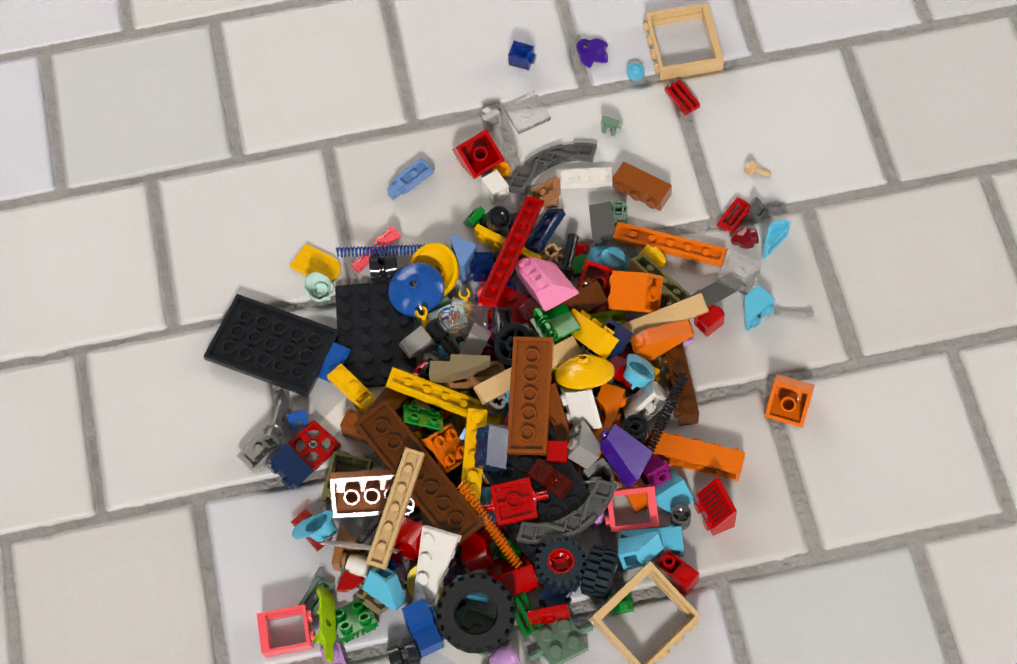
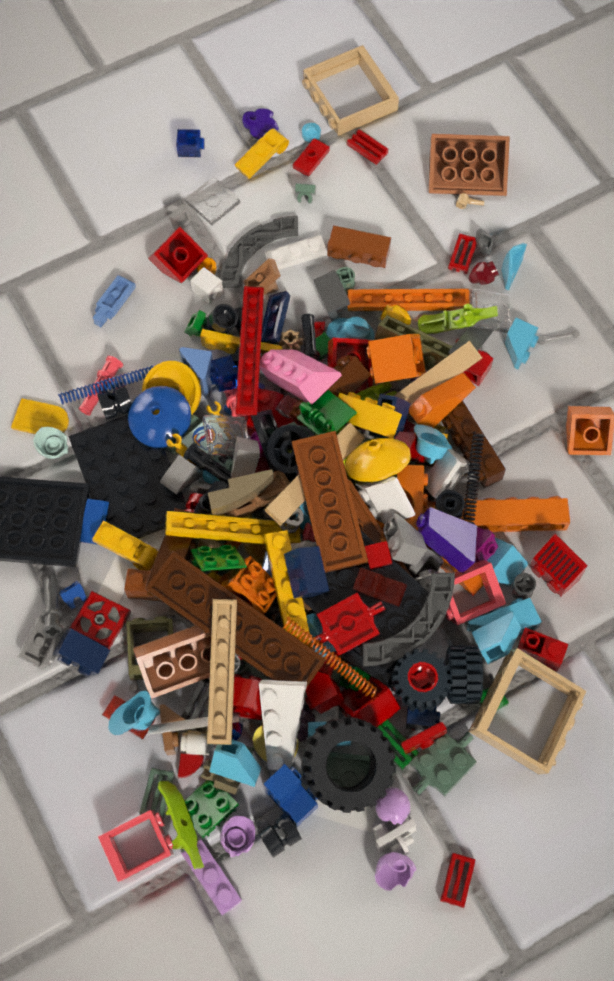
camera: 20 degrees left, 5 degrees up
(369, 647) = (237, 835): none -> lavender hair
(584, 78) = (261, 152): none -> yellow plate
(627, 94) = (311, 157): none -> red plate
(695, 272) = (446, 321): none -> lime piece
(767, 137) = (468, 164): none -> nougat slope

